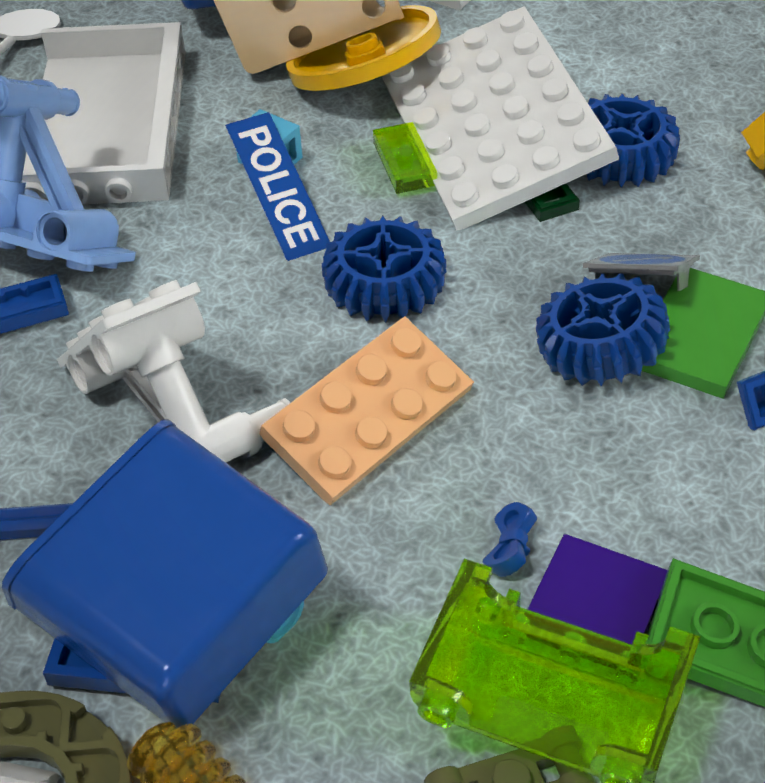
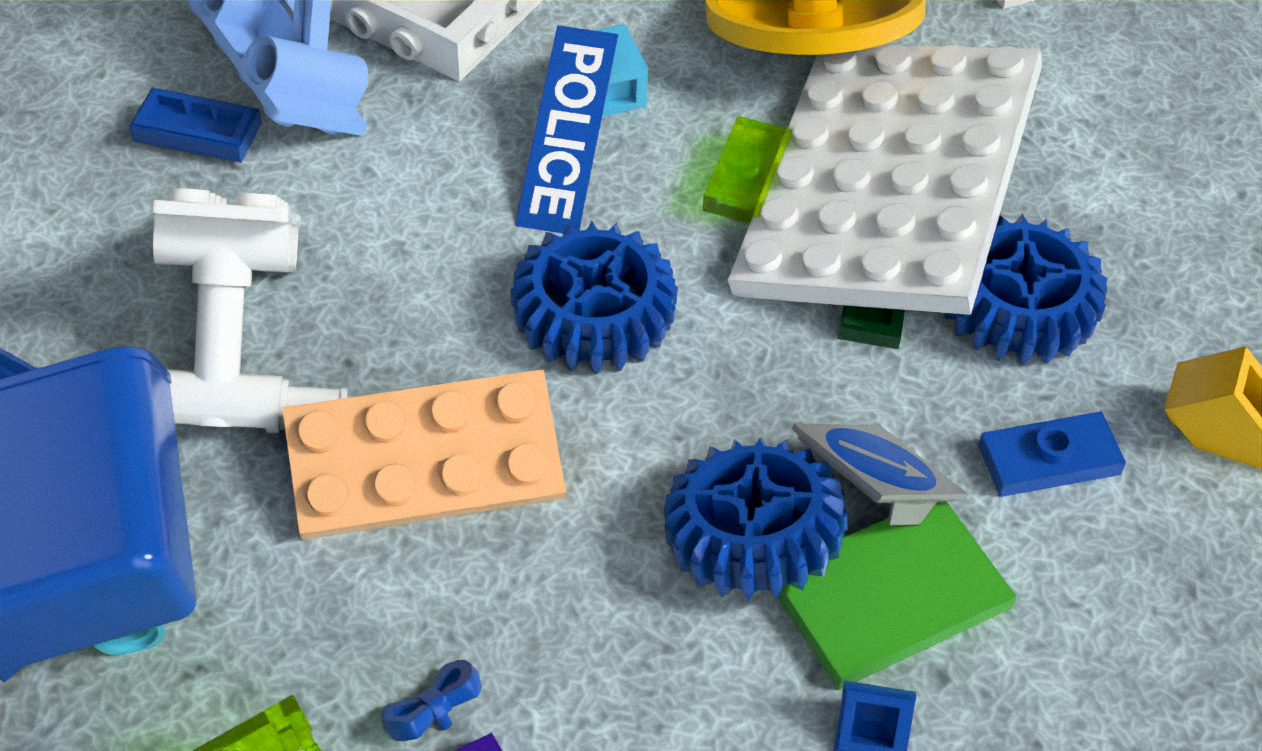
camera: 30 degrees right, 5 degrees up
(714, 216) = (1051, 454): none -> blue plate

